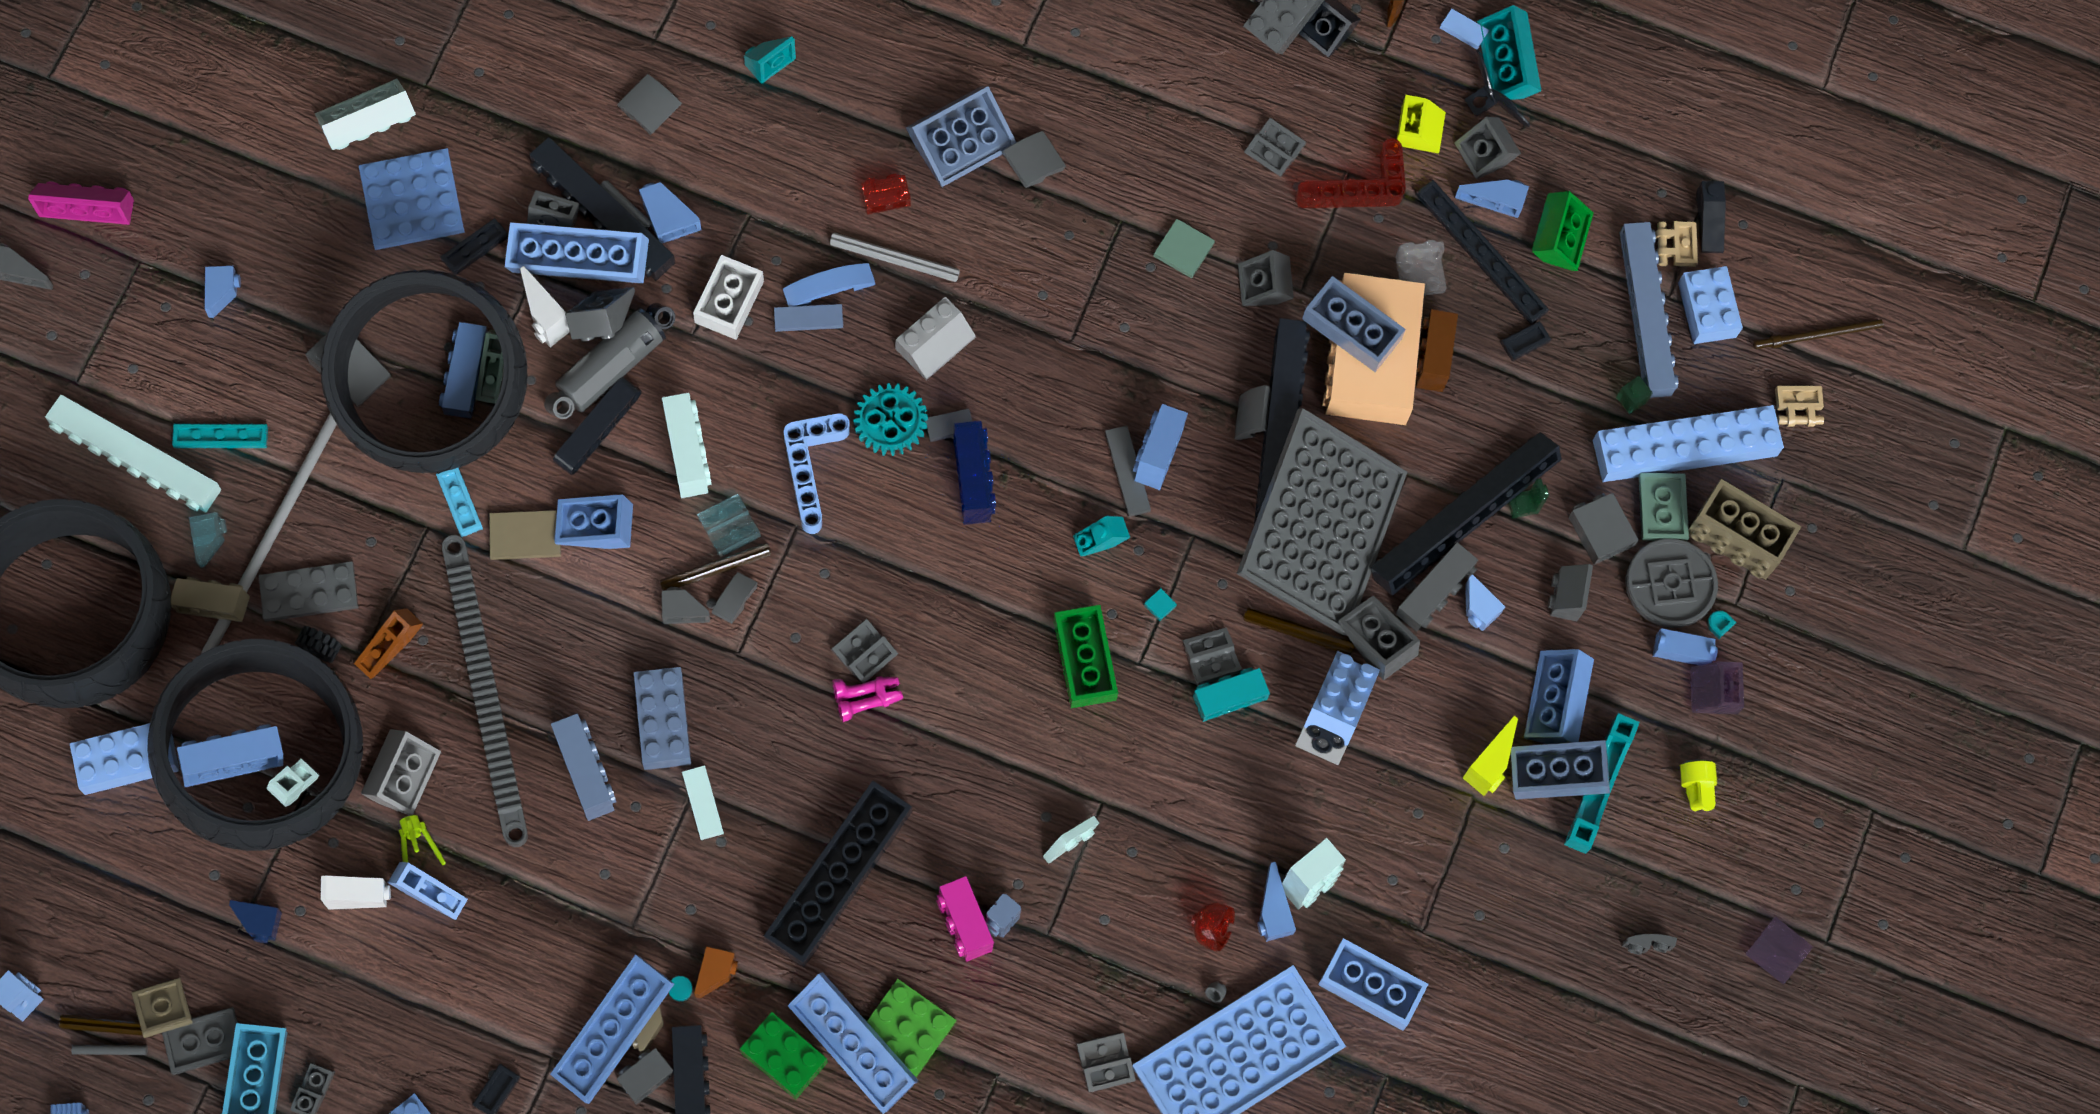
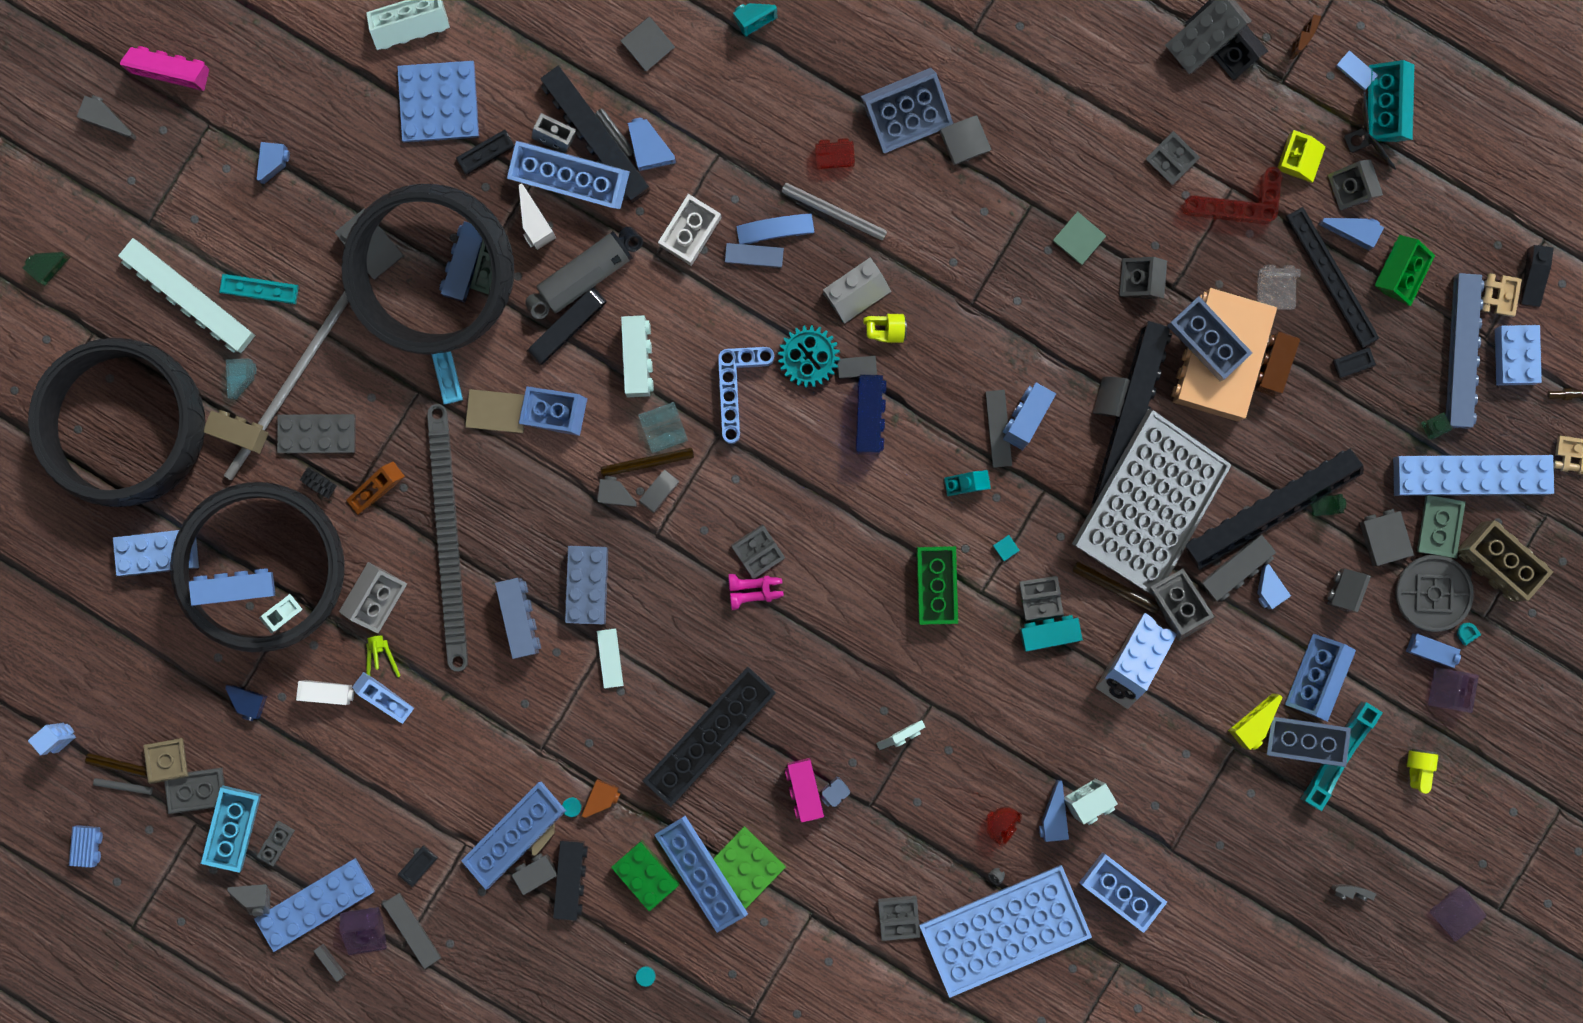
camera: 15 degrees right, 15 degrees up
(600, 314) = (581, 231): dark grey slope -> none
(986, 371) = (894, 325): none -> neon yellow piece

